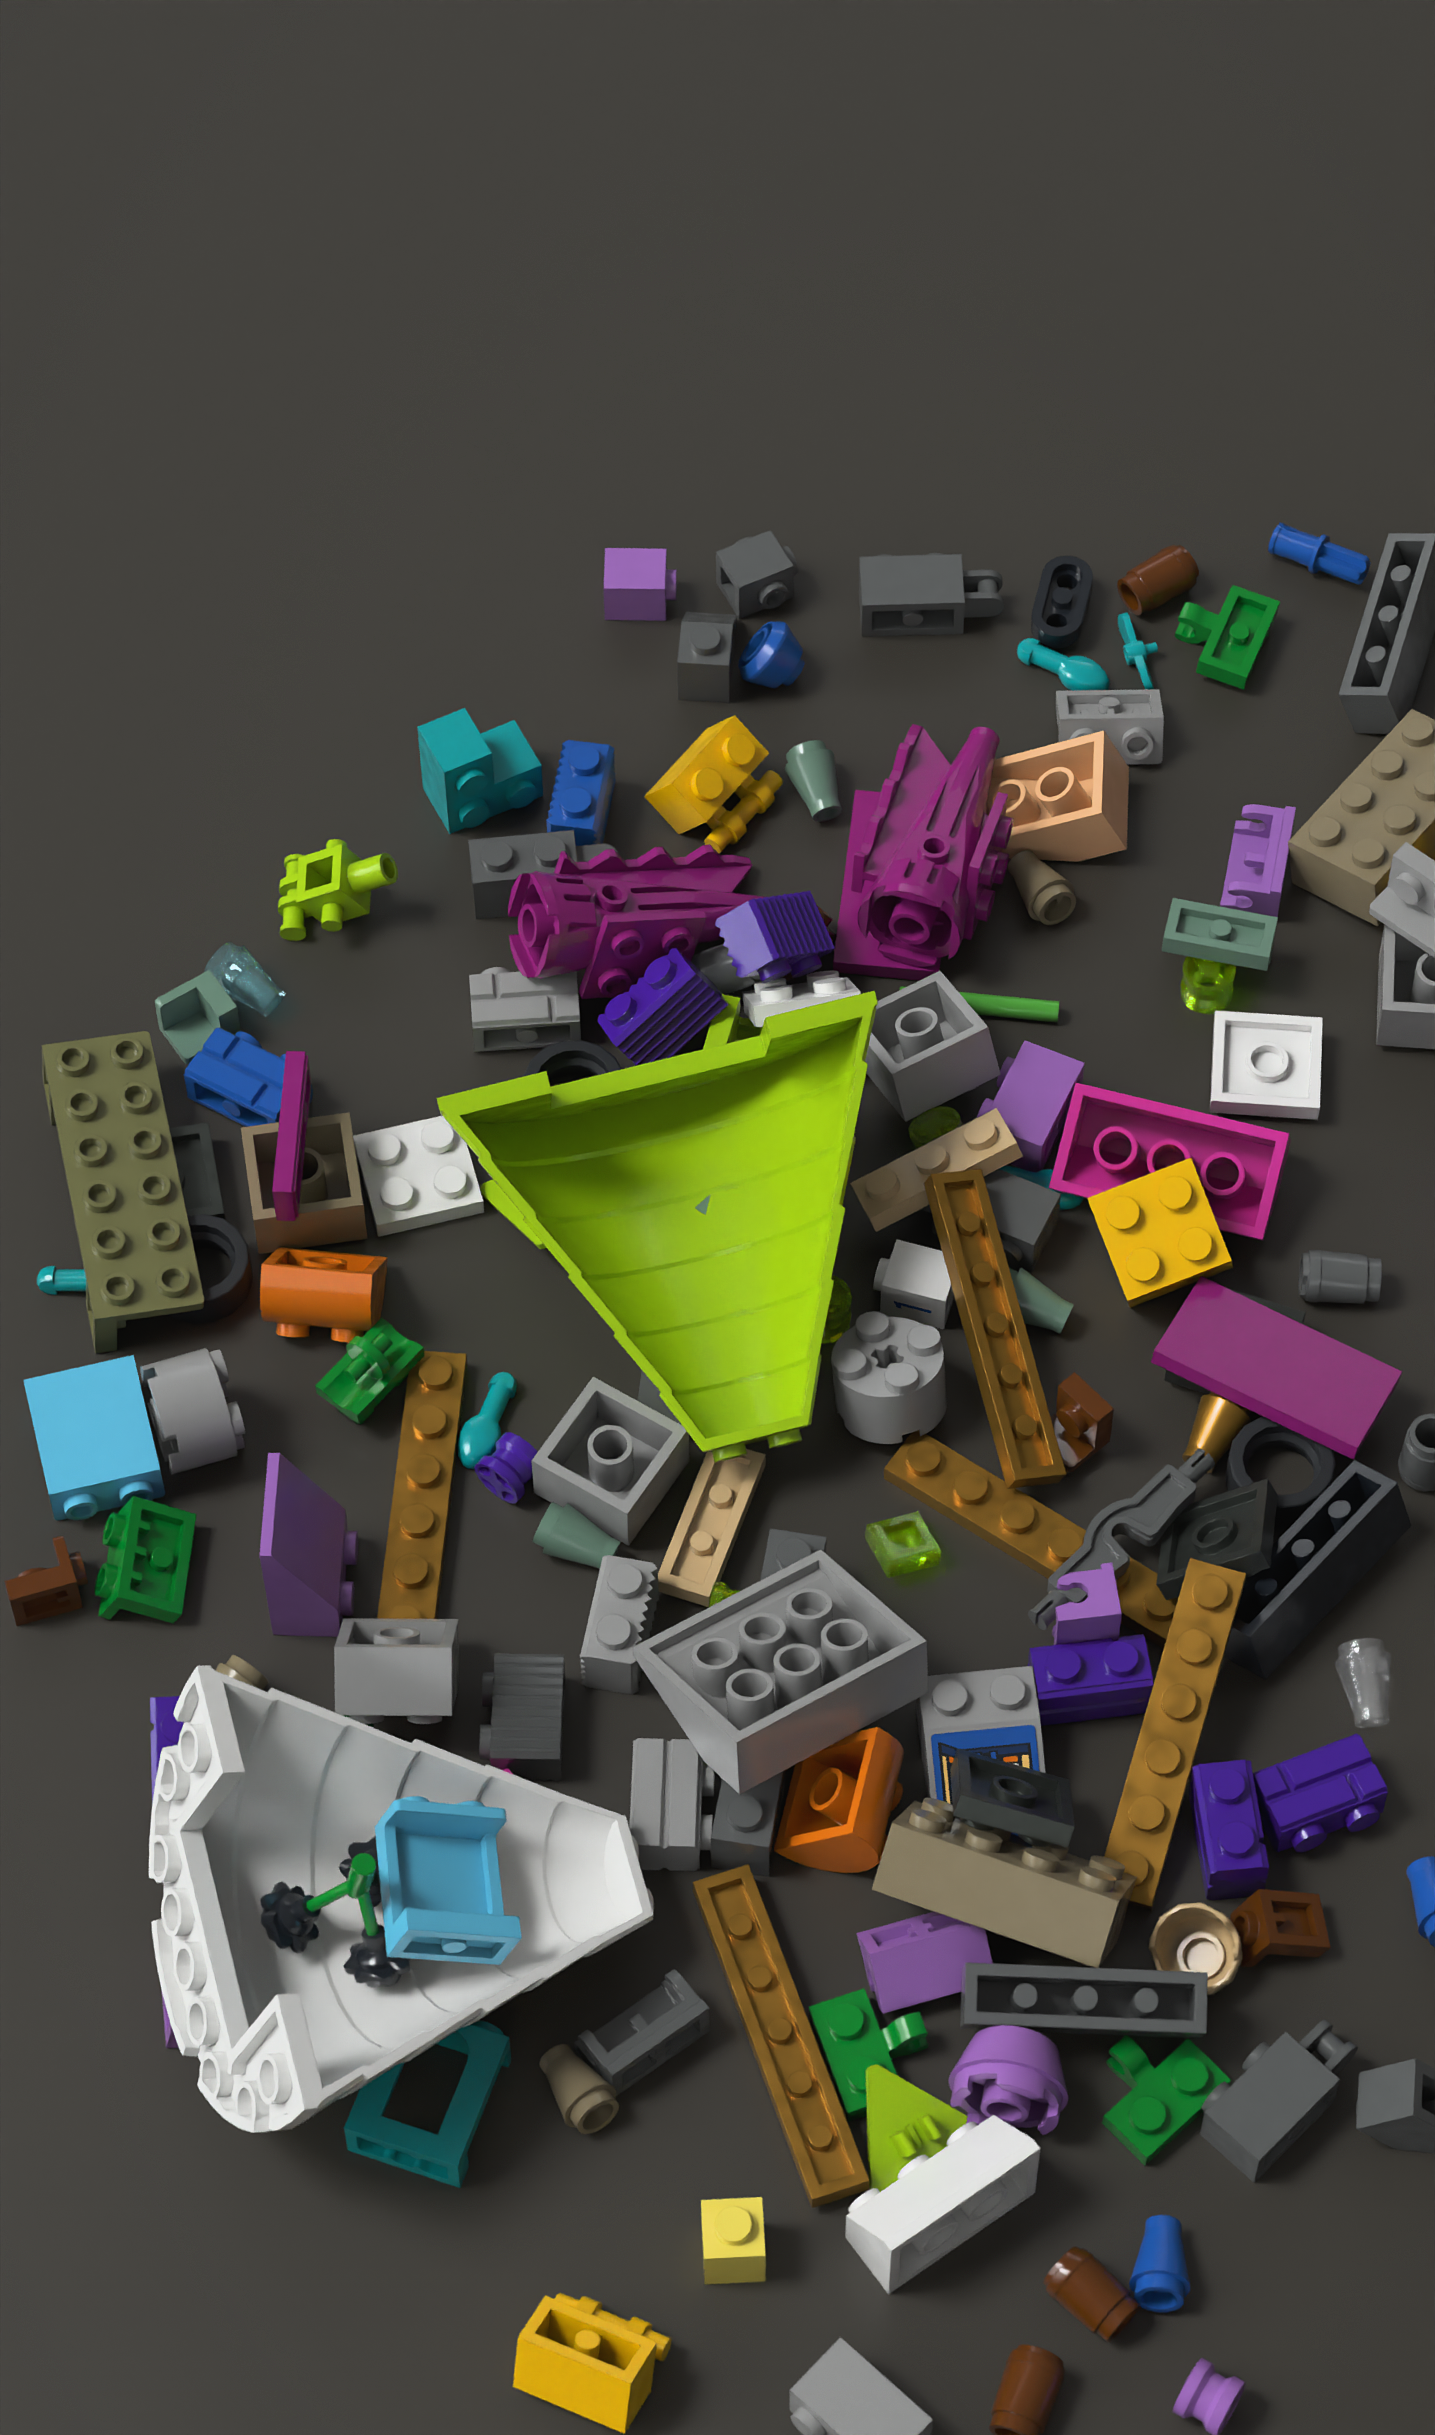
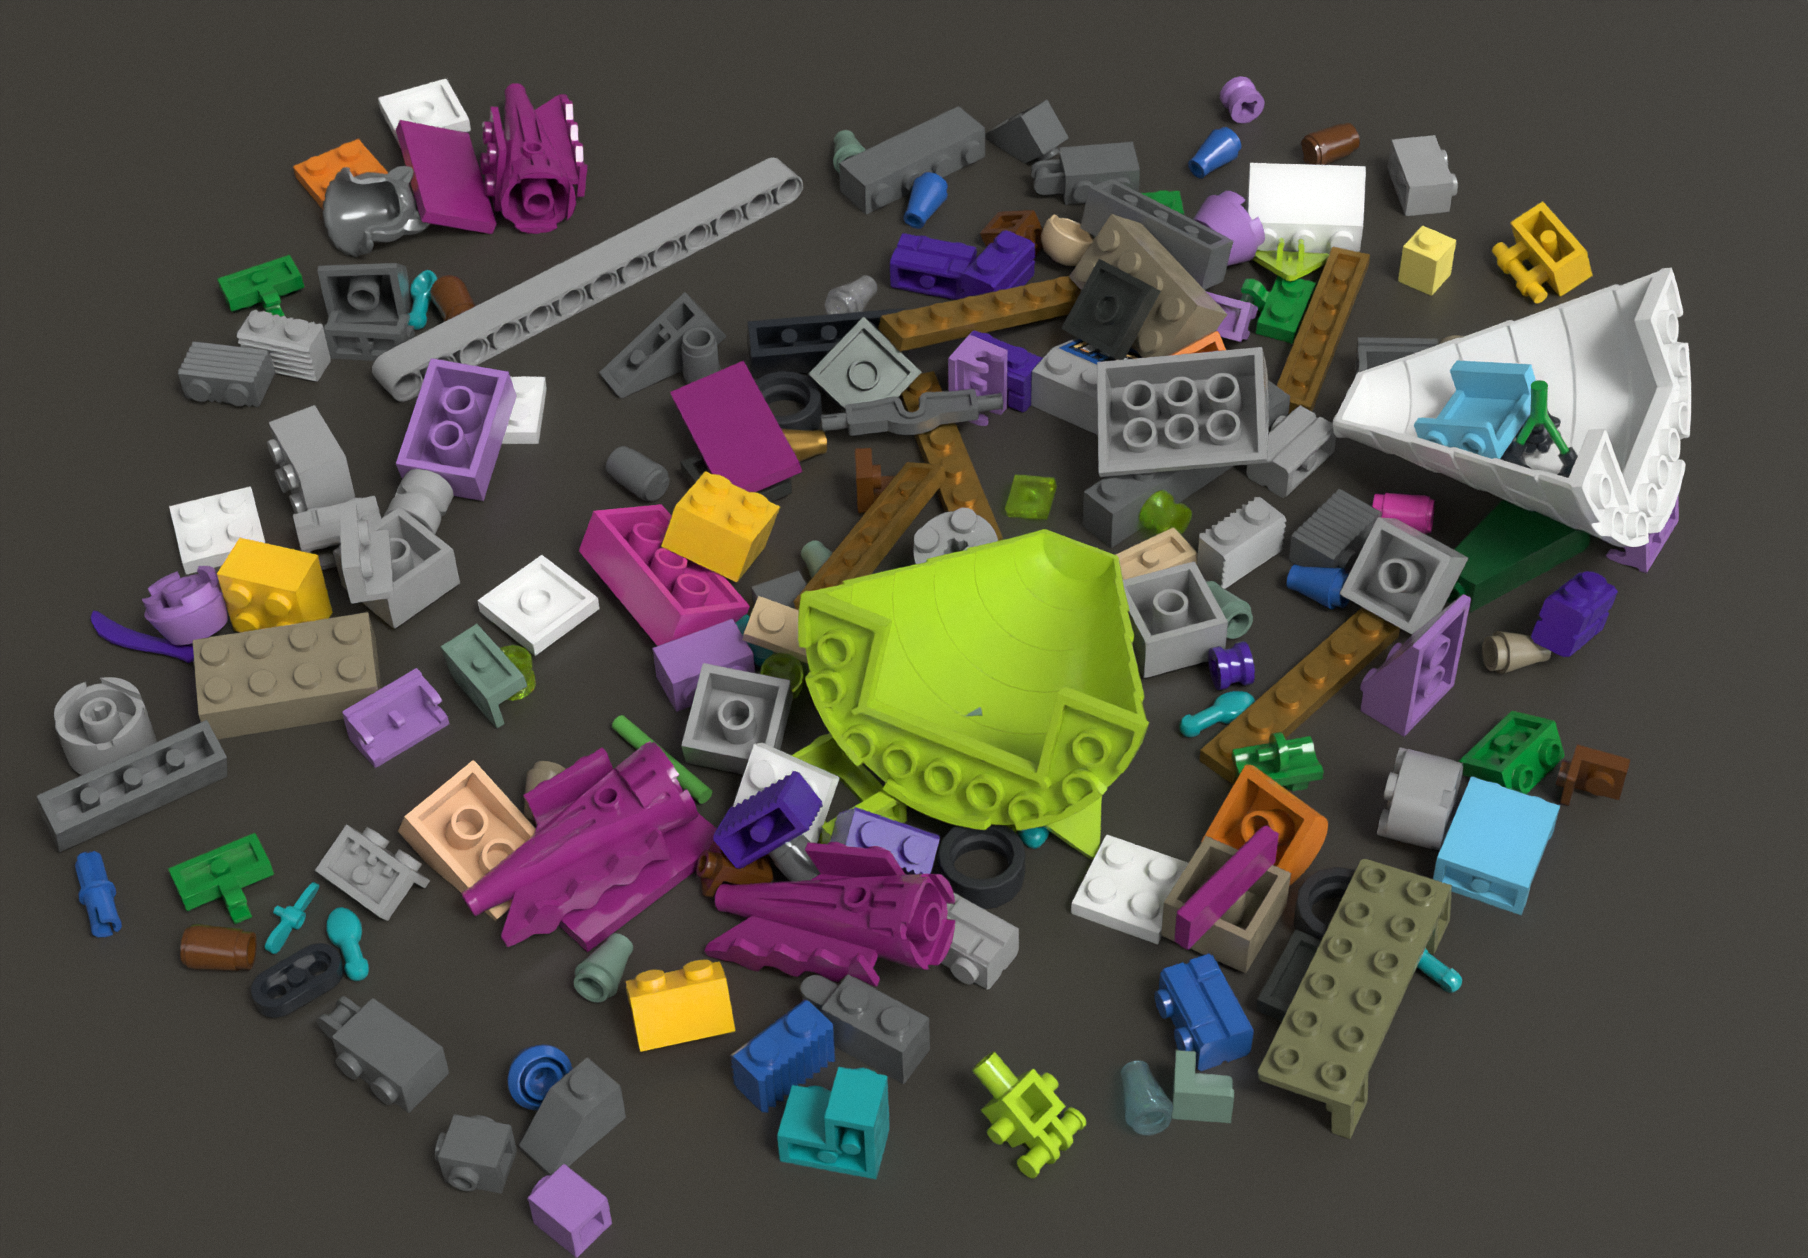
camera: 140 degrees left, 10 degrees down
(486, 1636) = (1319, 584): none -> blue cone
(1091, 2293) = (1257, 149): reddish brown piece -> none

